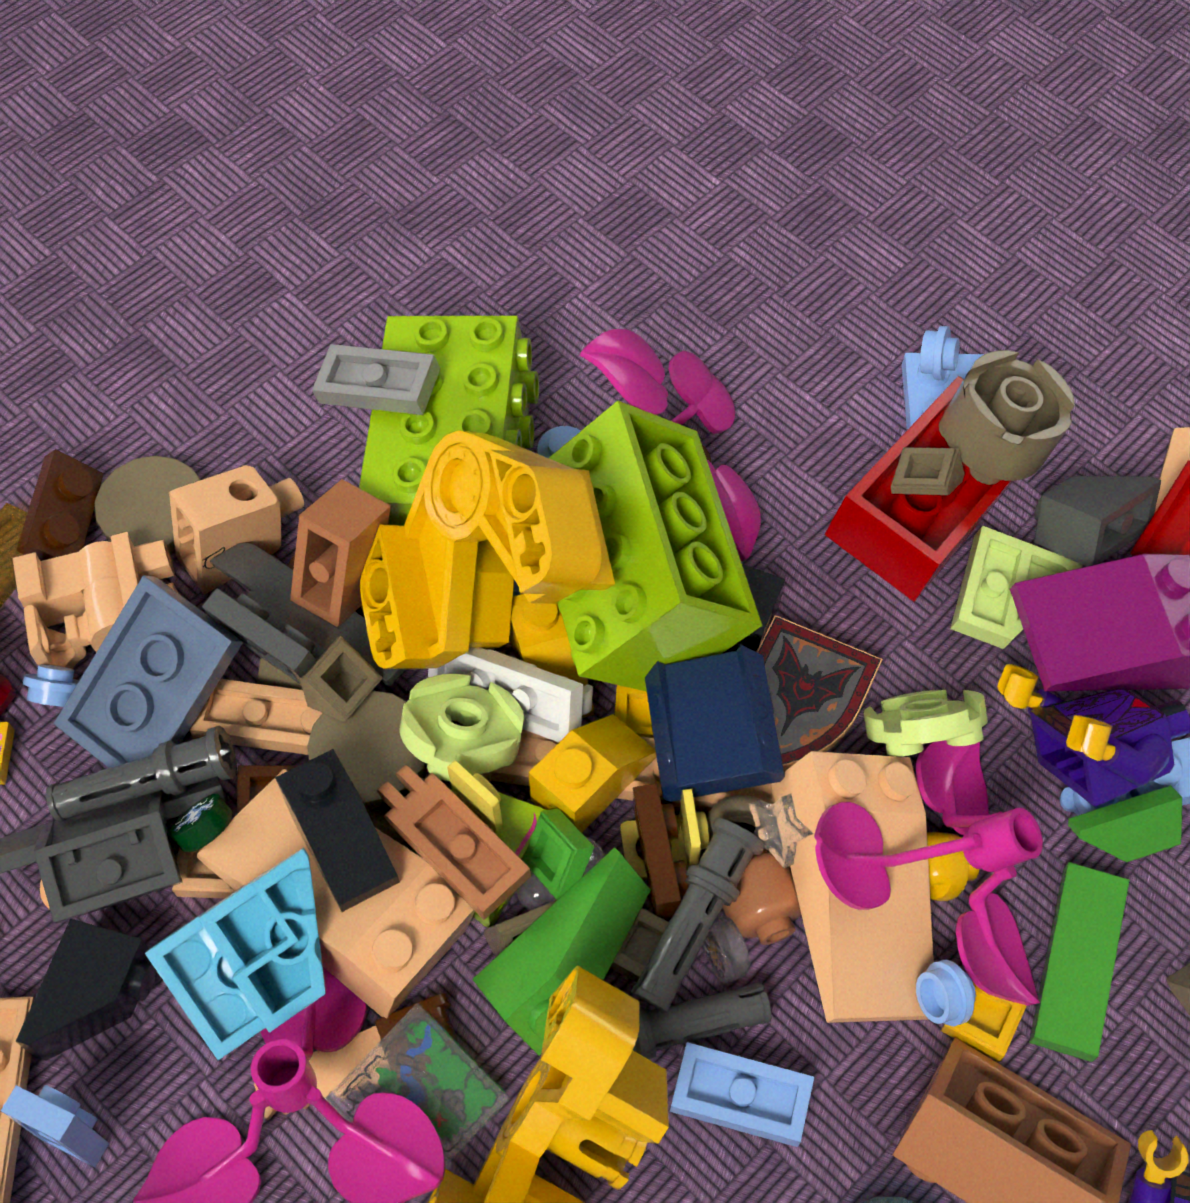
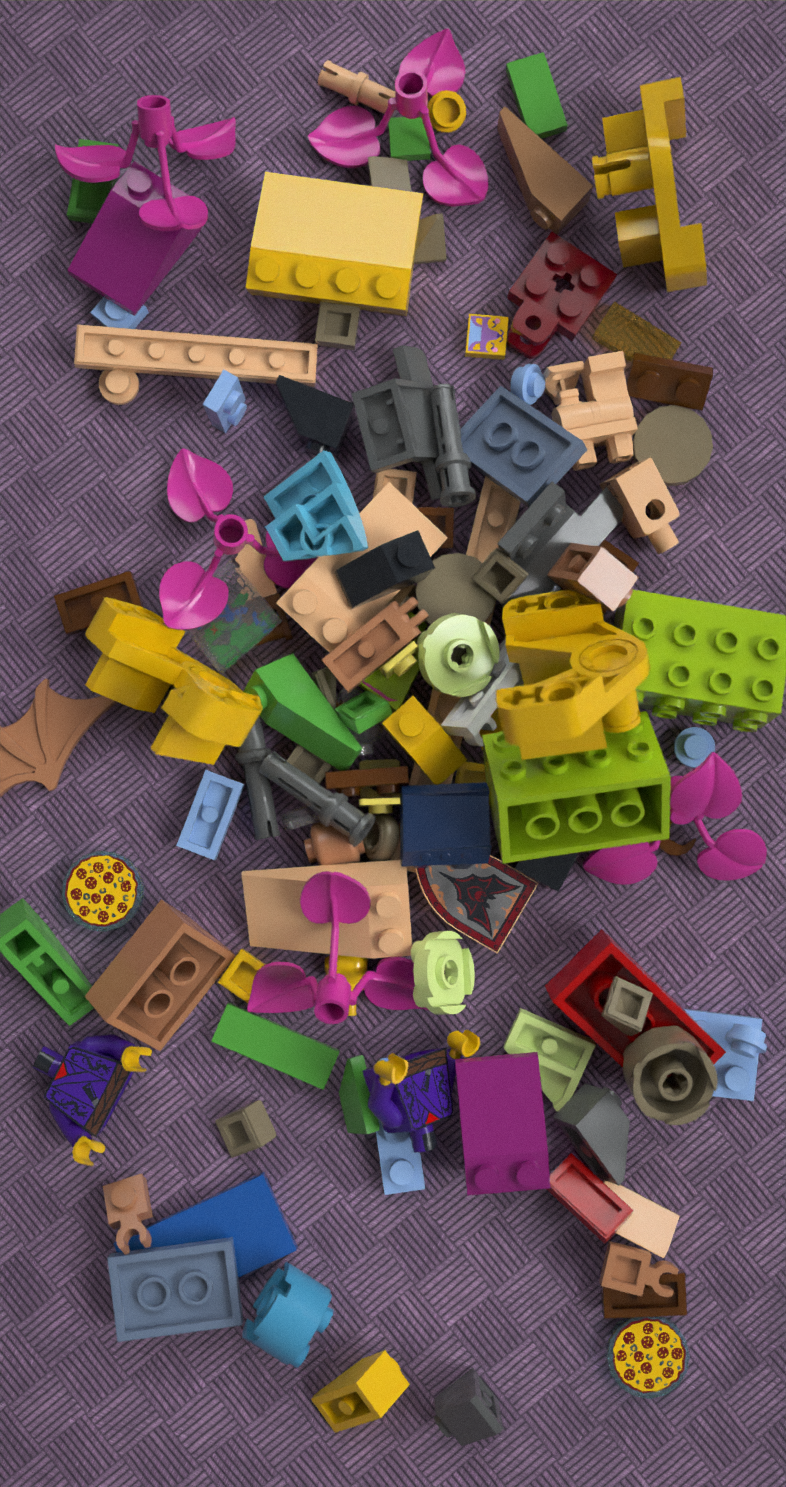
camera: 100 degrees right, 25 degrees up
(201, 823) = (412, 484): dark green tile -> none
(376, 379) = (725, 605): light grey plate -> none
(779, 828) = (366, 857): clear piece -> none
(946, 993) = (254, 950): light blue plate -> none

